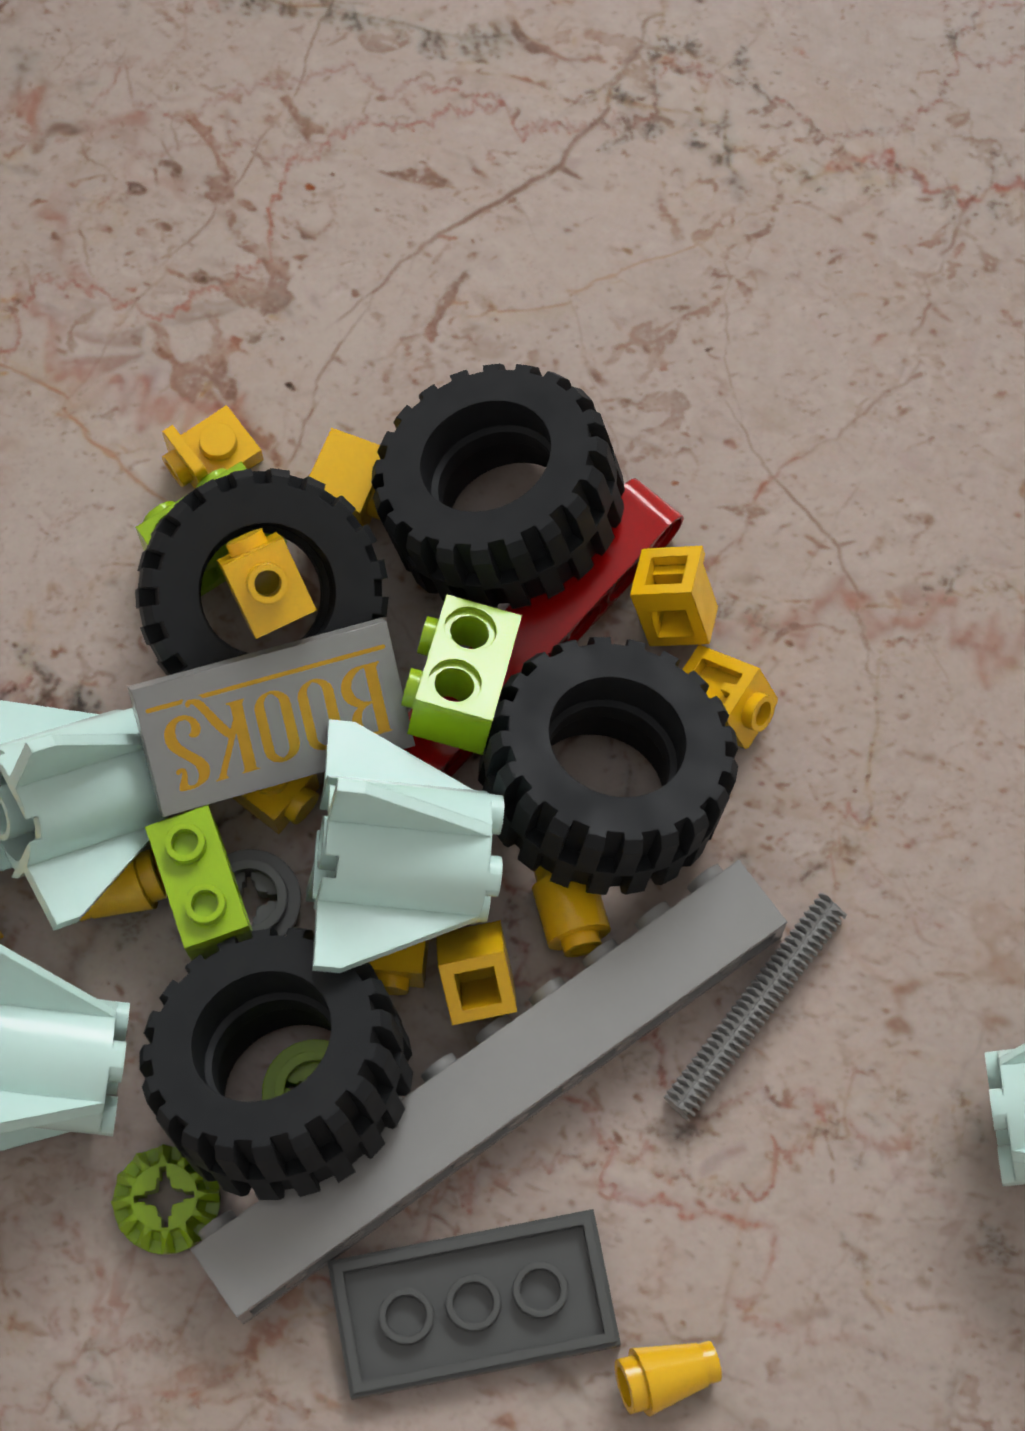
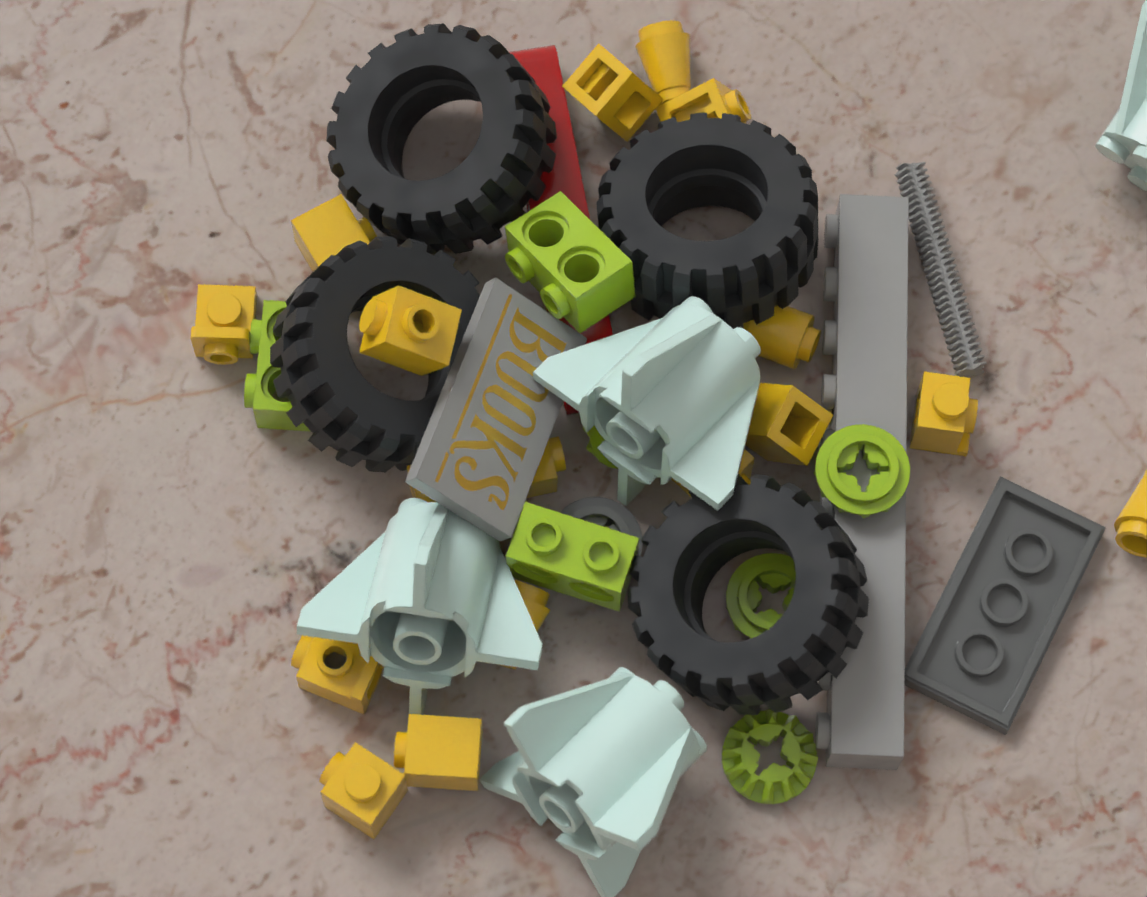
camera: 55 degrees left, 0 degrees up
(481, 1044) = (881, 453): none -> lime gear
(608, 1112) = (943, 414): none -> yellow brick
(753, 619) = (666, 58): none -> yellow cone

